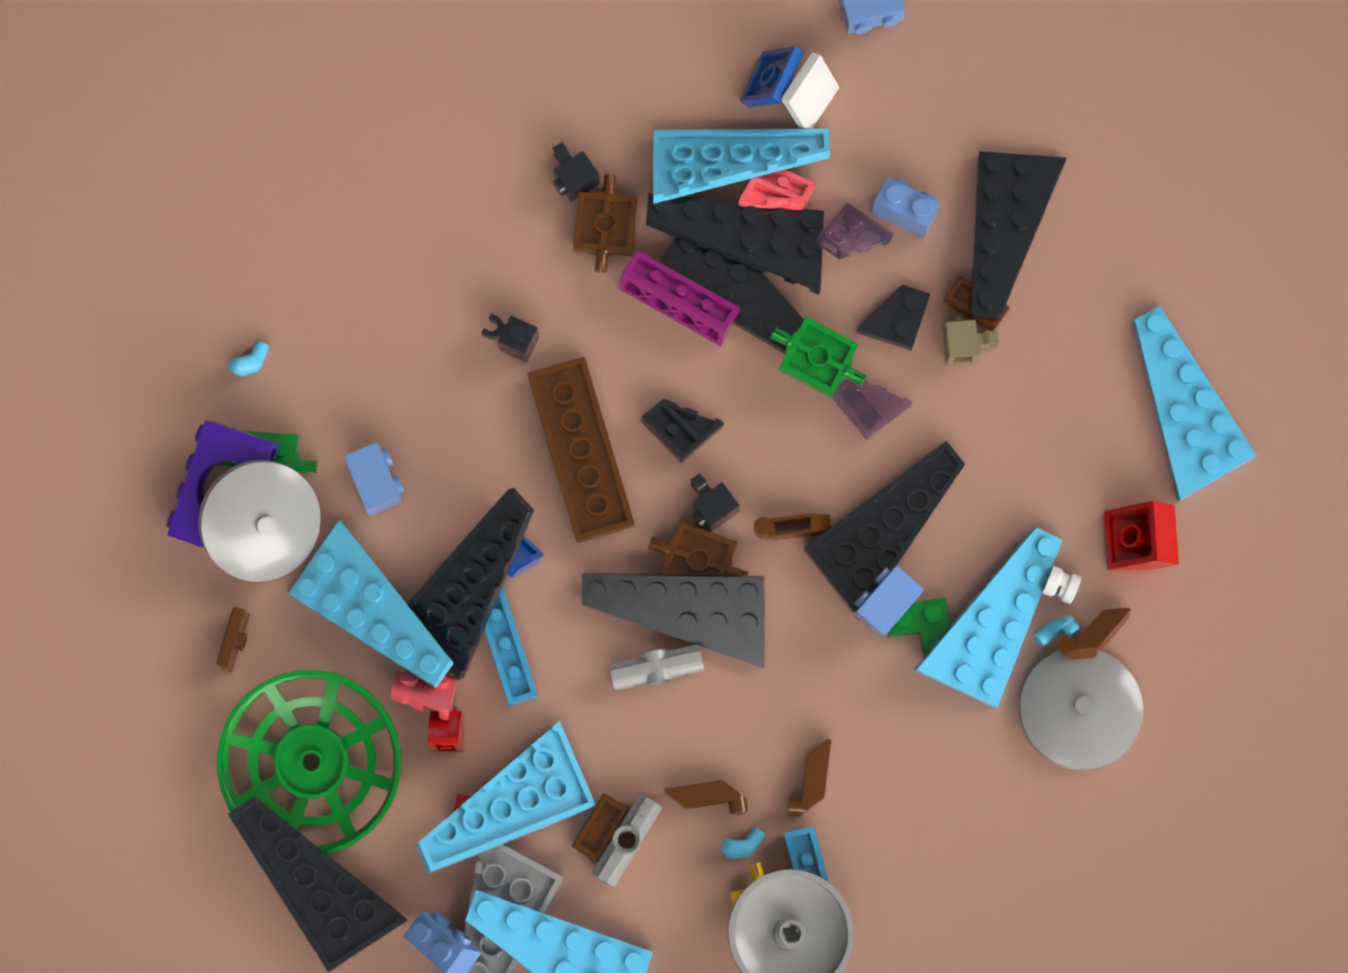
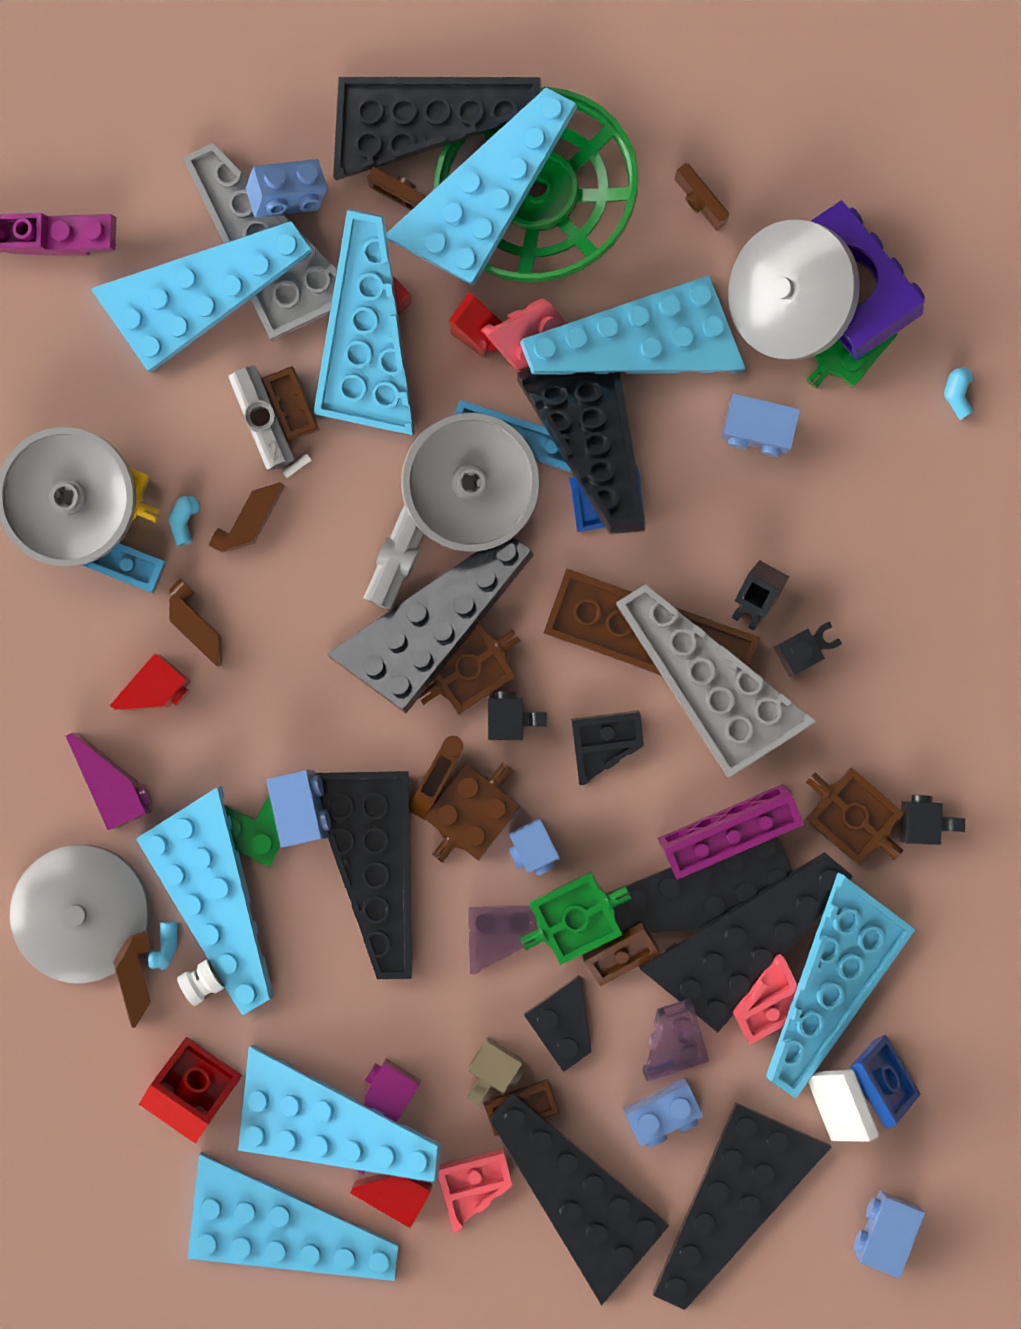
camera: 125 degrees right, 10 degrees up
(358, 791) = (474, 206): none -> medium azure wing
(383, 862) = (398, 190): none -> reddish brown plate
(495, 394) = (759, 592): none -> black brick
(564, 650) = (470, 482): none -> light grey dish
(588, 369) = (720, 694): none -> light grey wing
(638, 790) = (296, 465): none -> white piece
(791, 420) = (533, 848): none -> medium blue brick
(798, 484) = (472, 812): none -> reddish brown plate
(820, 309) = (621, 954): none -> reddish brown plate
(881, 773) = (154, 686): none -> red slope
(912, 123) = (743, 1184): none -> black wing
(973, 750) = (113, 789): none -> magenta slope
(1044, 397) = (389, 1090): none -> magenta slope
(1053, 299) = (472, 1184): none -> coral wing
(1094, 432) = (317, 1123): none -> medium azure wing
(1100, 346) = (393, 1195): none -> red slope

